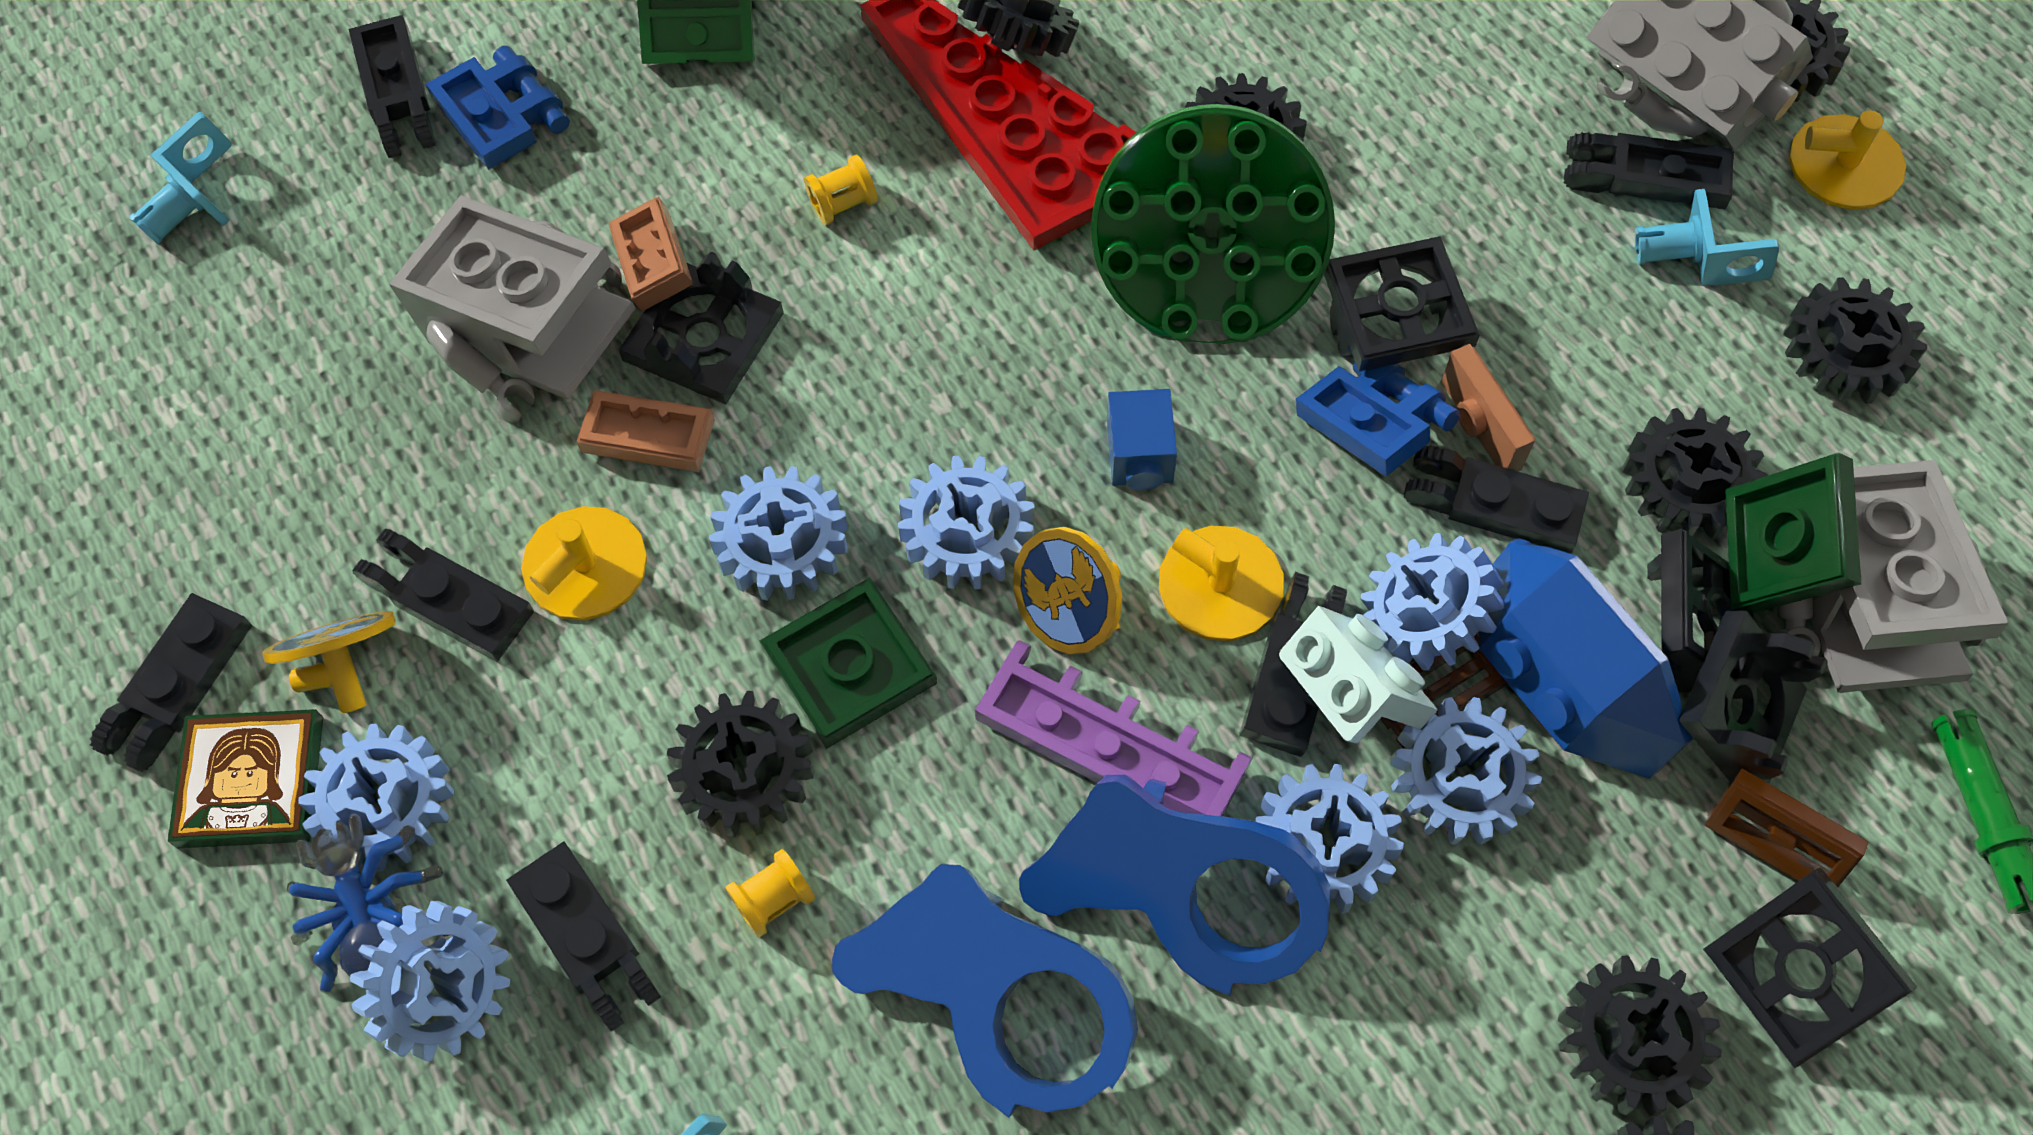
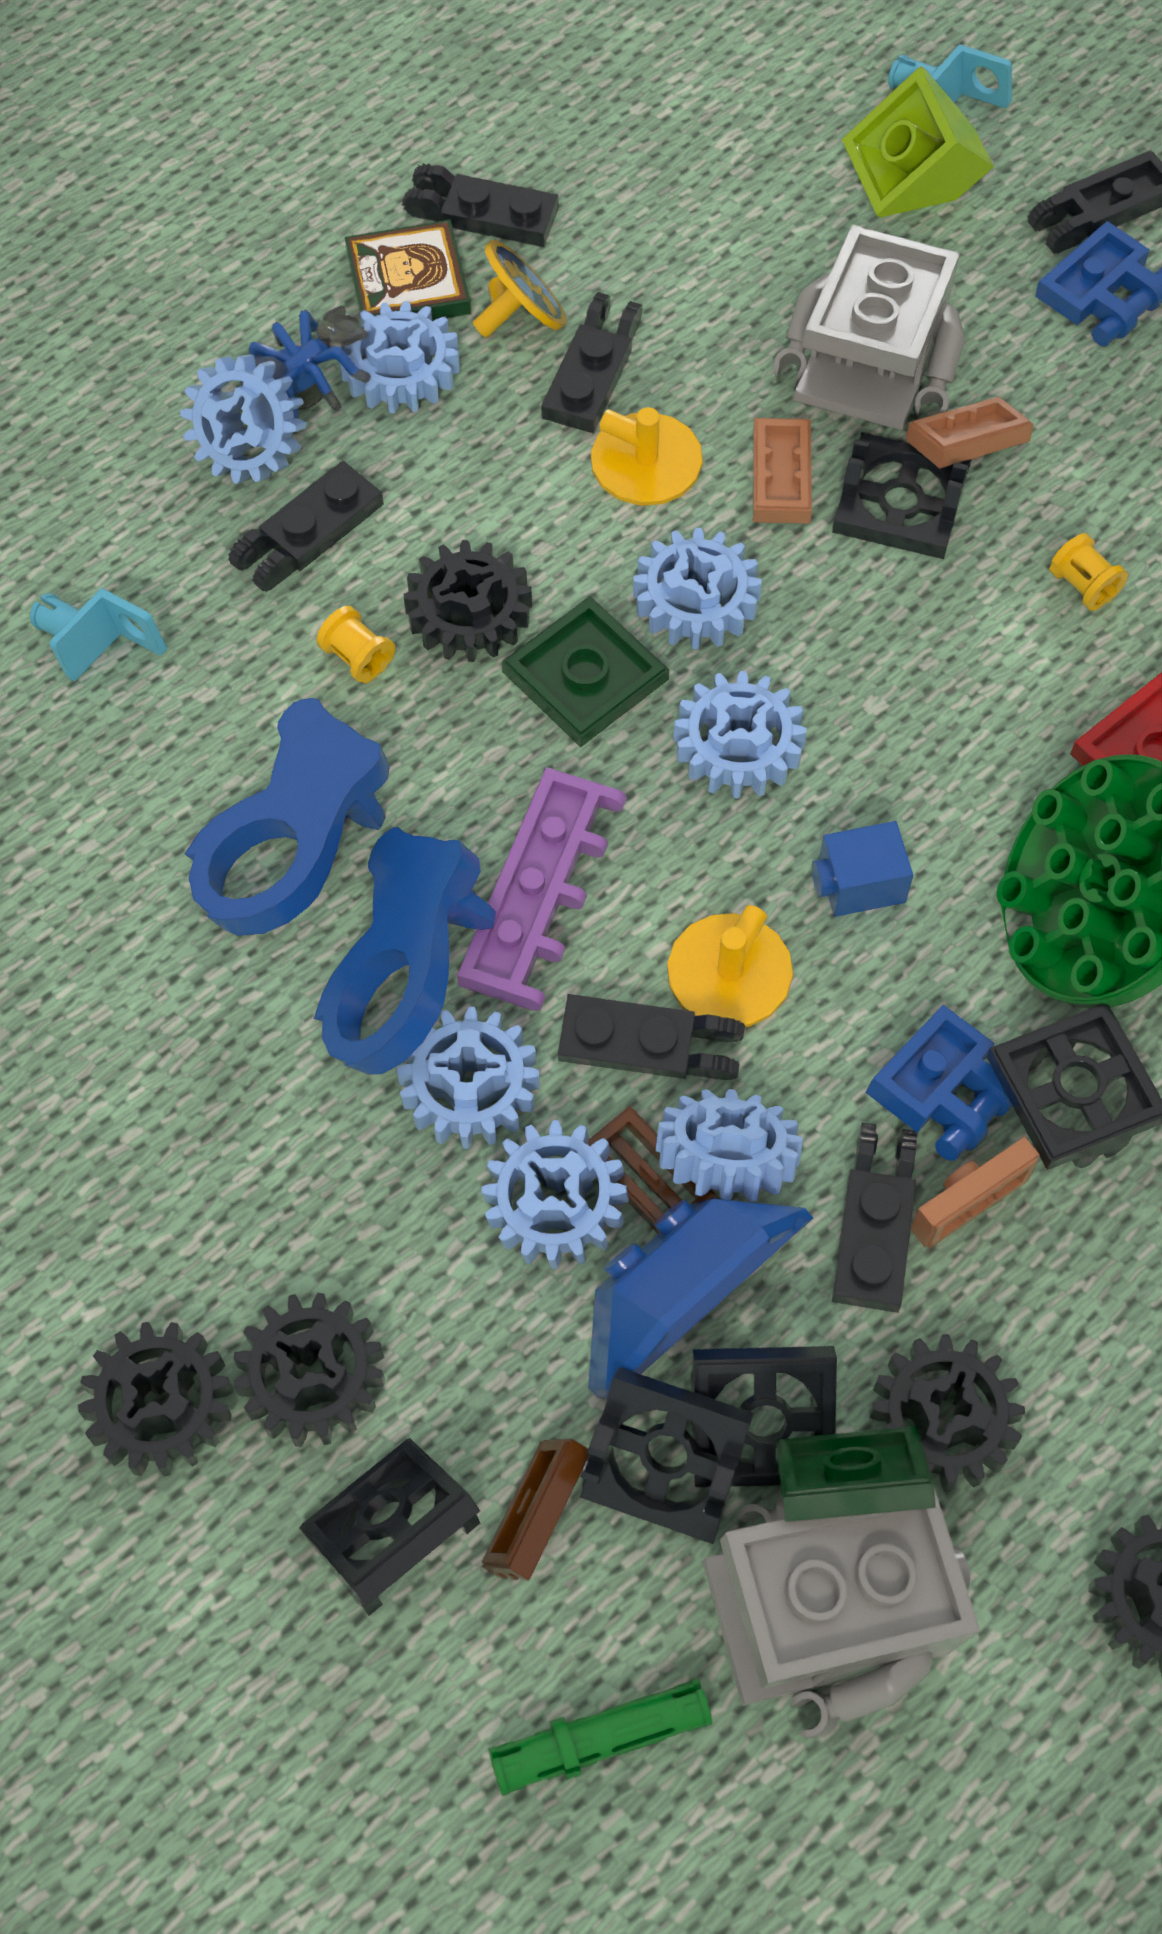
camera: 80 degrees right, 0 degrees up
(264, 231) = (916, 149): none -> lime slope
(1067, 590) = (675, 825): shield -> none
(1354, 675) = (626, 1070): light aqua bracket -> none

